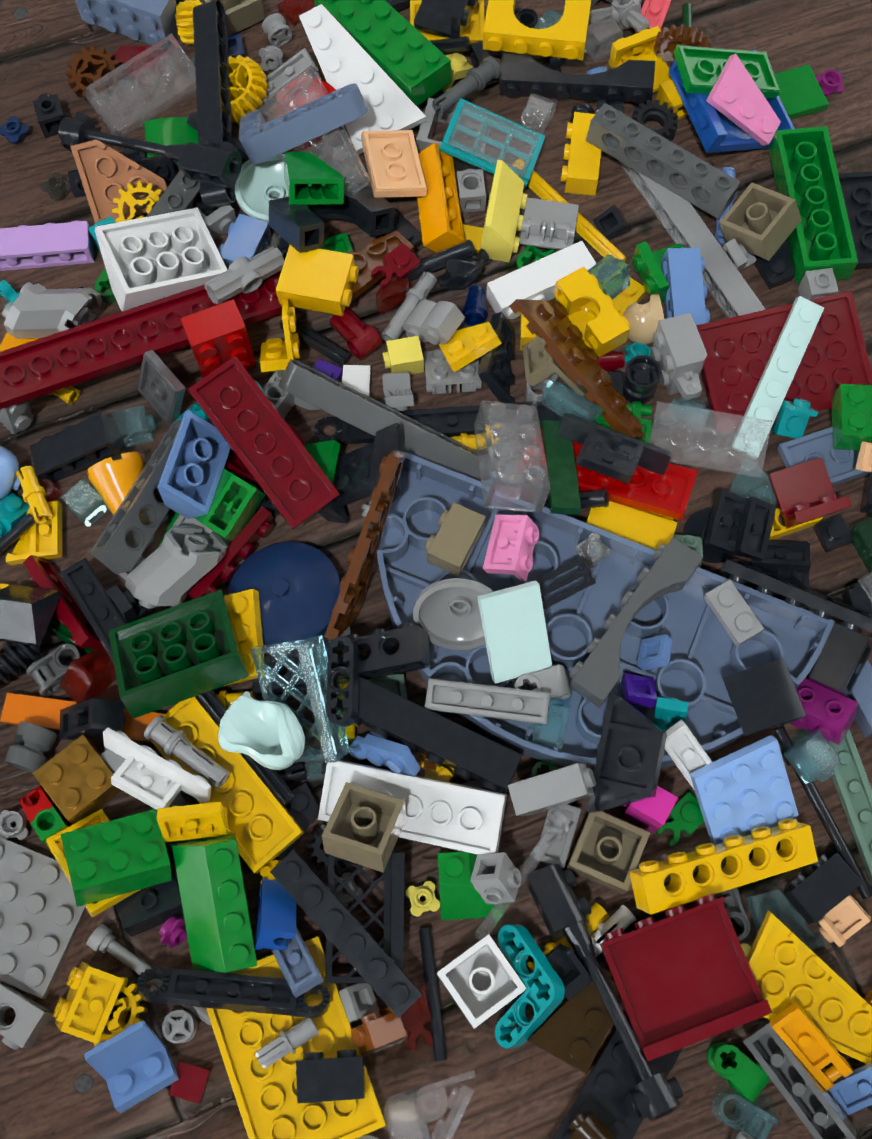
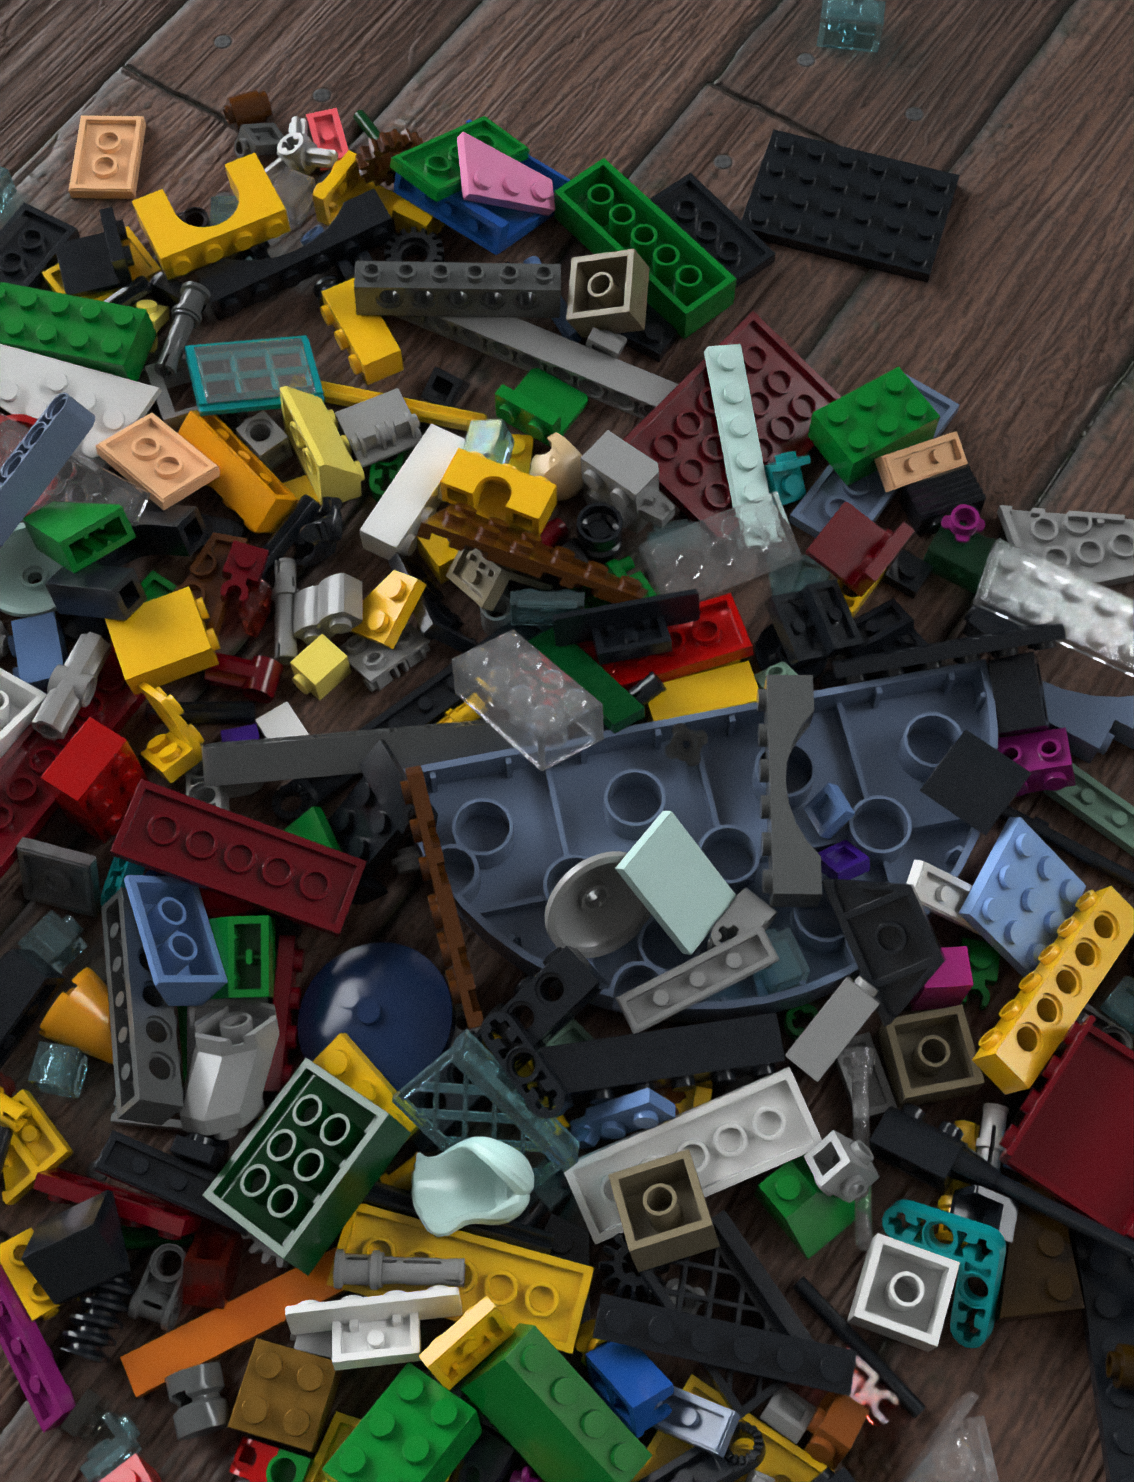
camera: 35 degrees left, 5 degrees down
(91, 719) = (251, 1314): black slope -> none
(397, 390) = (339, 710): light grey bracket -> none
(429, 904) = (785, 1248): light yellow plate -> none
(455, 539) = (535, 826): dark tan brick -> none
(475, 306) = (360, 564): clear blue cone -> none
(511, 546) = (600, 794): bright pink bracket -> none
(538, 113) = (278, 315): clear piece -> none
(584, 572) = (695, 775): black tile -> none
(635, 350) = (571, 508): teal plate -> none
(669, 712) = (894, 862): teal bracket -> none
(686, 288) = (581, 410): medium blue brick -> none
(733, 613) = (880, 715): light grey plate -> none
(800, 92) = (546, 138): green tile -> none
(813, 757) = (1060, 815): clear light blue brick -> none
(818, 284) = (710, 327): light grey brick -> none
(830, 82) = (568, 113): magenta plate -> none

